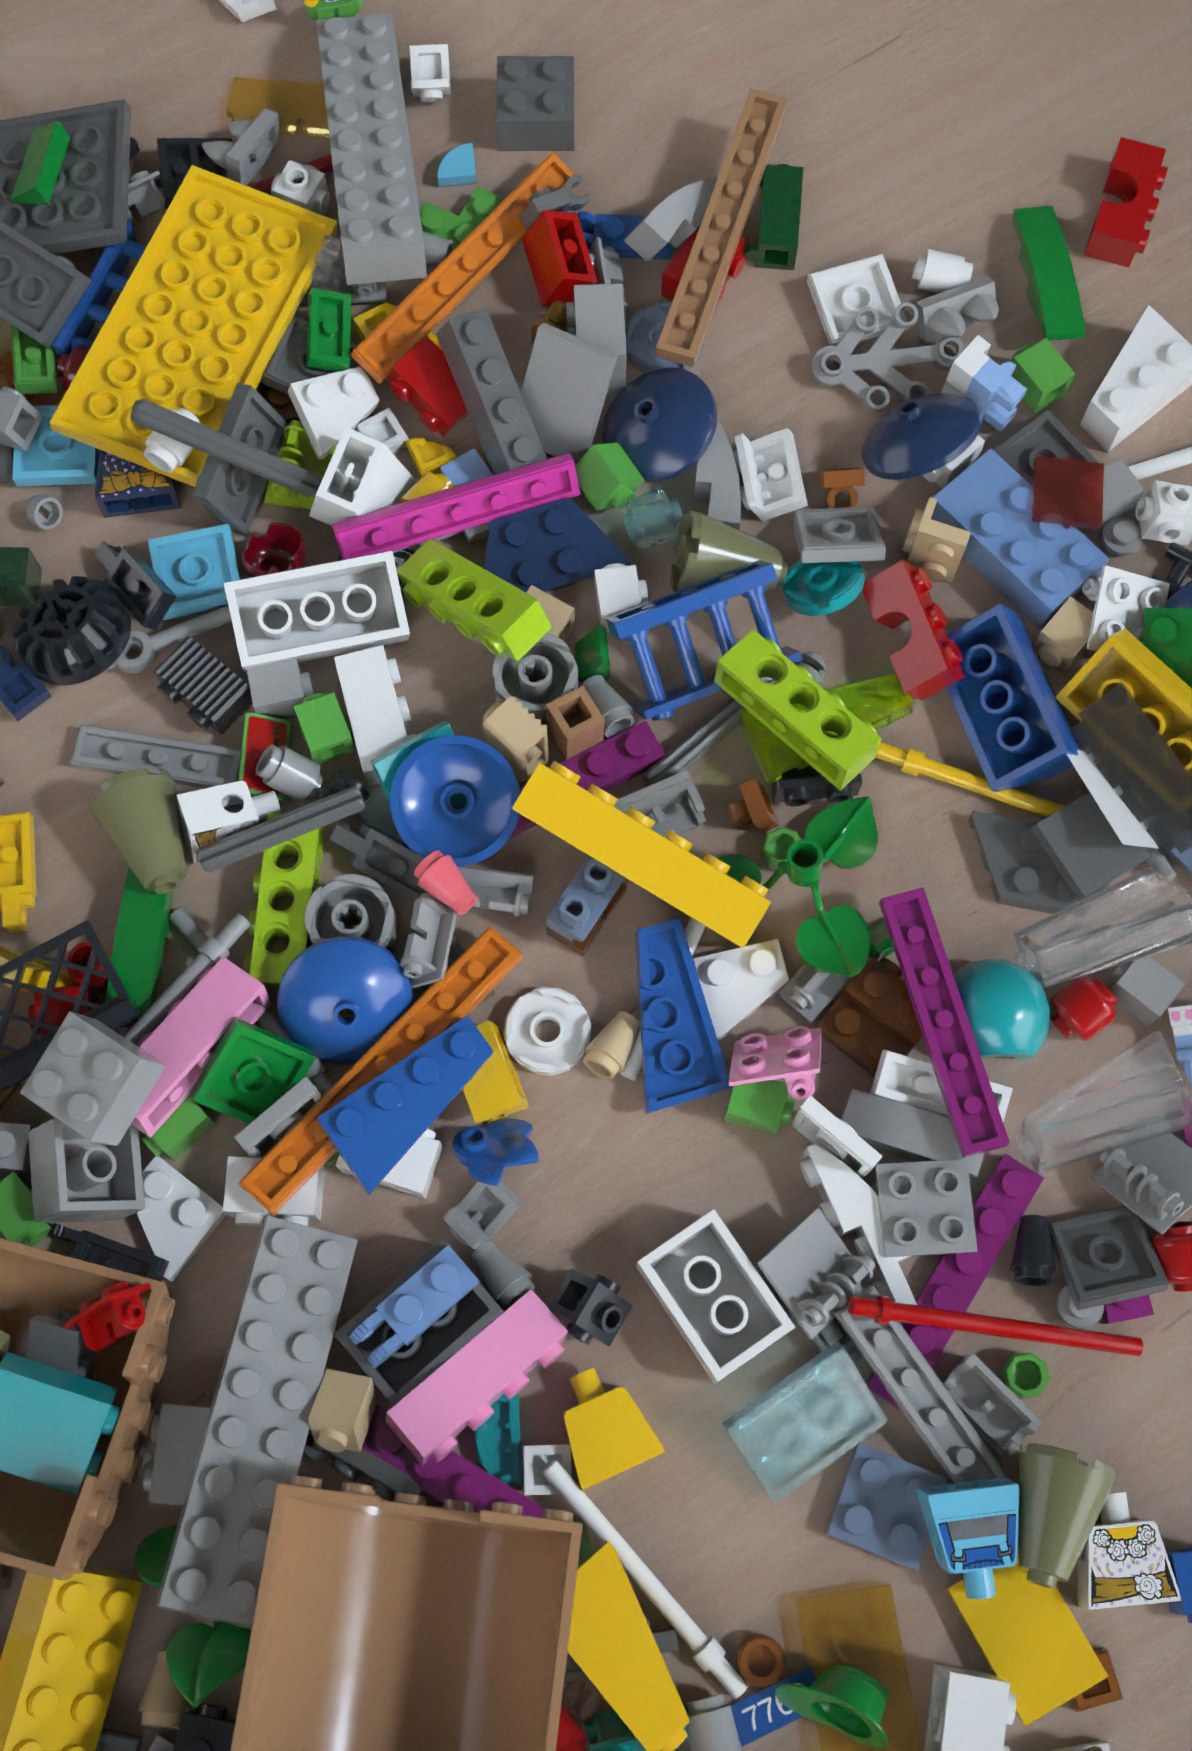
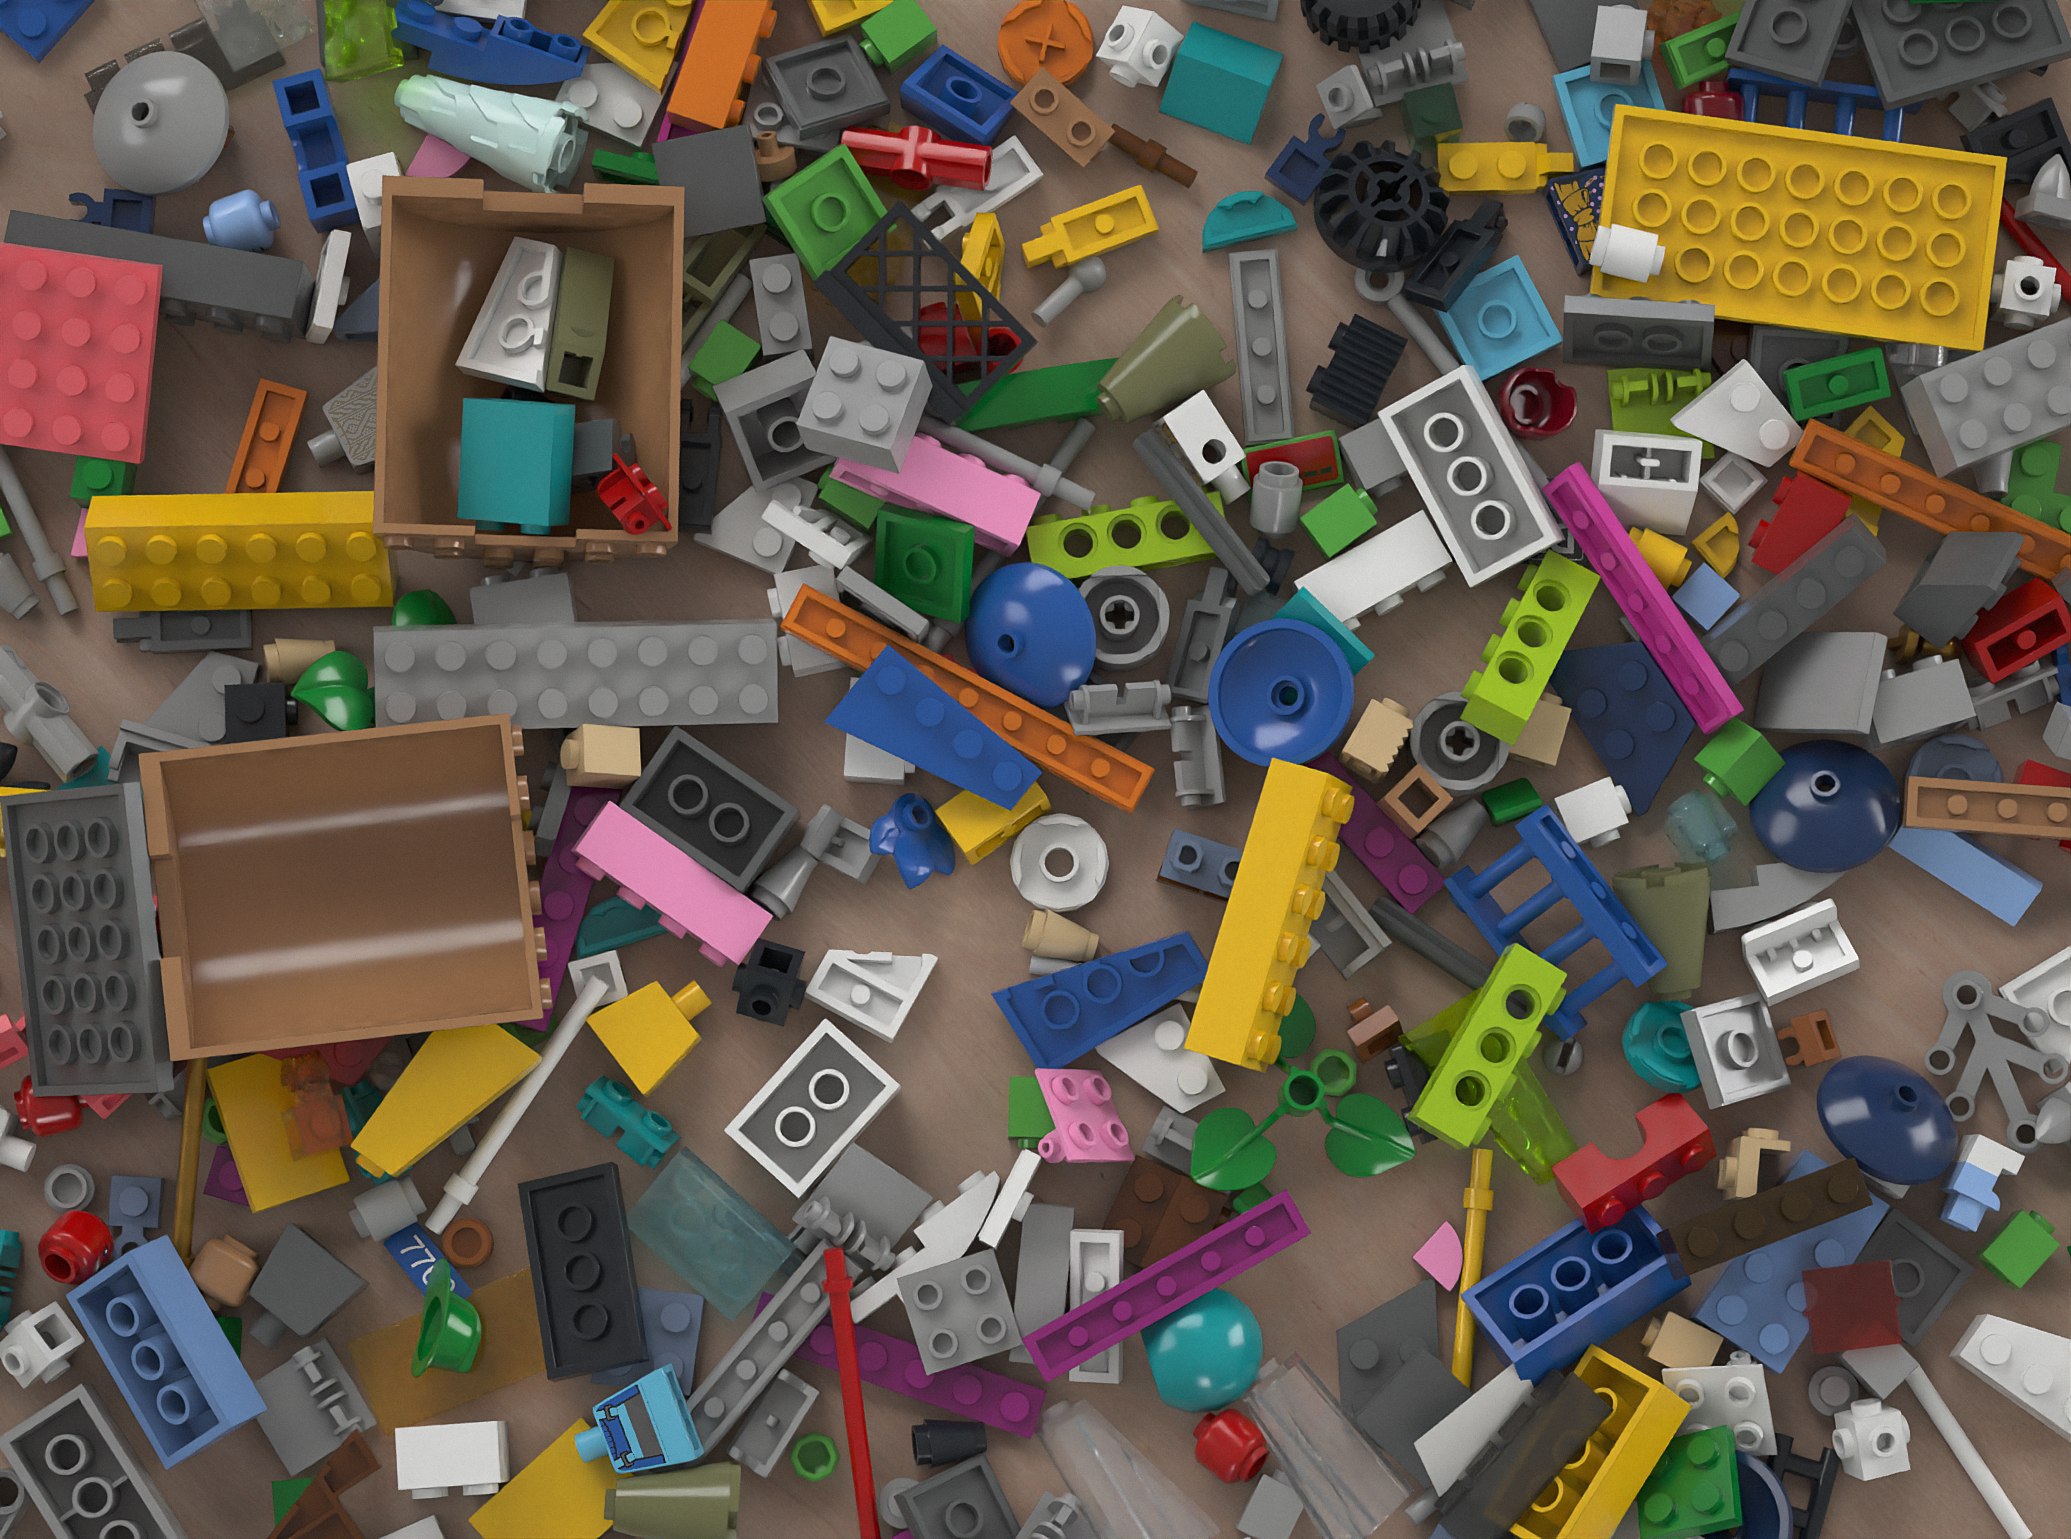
camera: 75 degrees right, 10 degrees up
(46, 745) = (1244, 219): none -> teal tile
(50, 887) = (1083, 276): none -> light grey bar
(73, 537) = (1499, 167): none -> yellow hinge
(207, 1152) = (825, 533): none -> white wing
(224, 447) = (1624, 319): dark grey axle -> none
(418, 1303) = (726, 803): medium blue hinge -> none
(445, 882) = (1184, 708): coral cone -> none
(513, 279) = (1957, 582): none -> dark grey slope
(616, 1220) = (870, 988): none -> white wing
(698, 1459) = (612, 1105): none -> teal hinge
(736, 338) = (1970, 870): none -> light blue tile
(816, 1552) = (583, 1272): none -> black plate
(953, 802) = (1441, 1256): none -> bright pink tile
(998, 557) = (1764, 1218): none -> dark brown arch

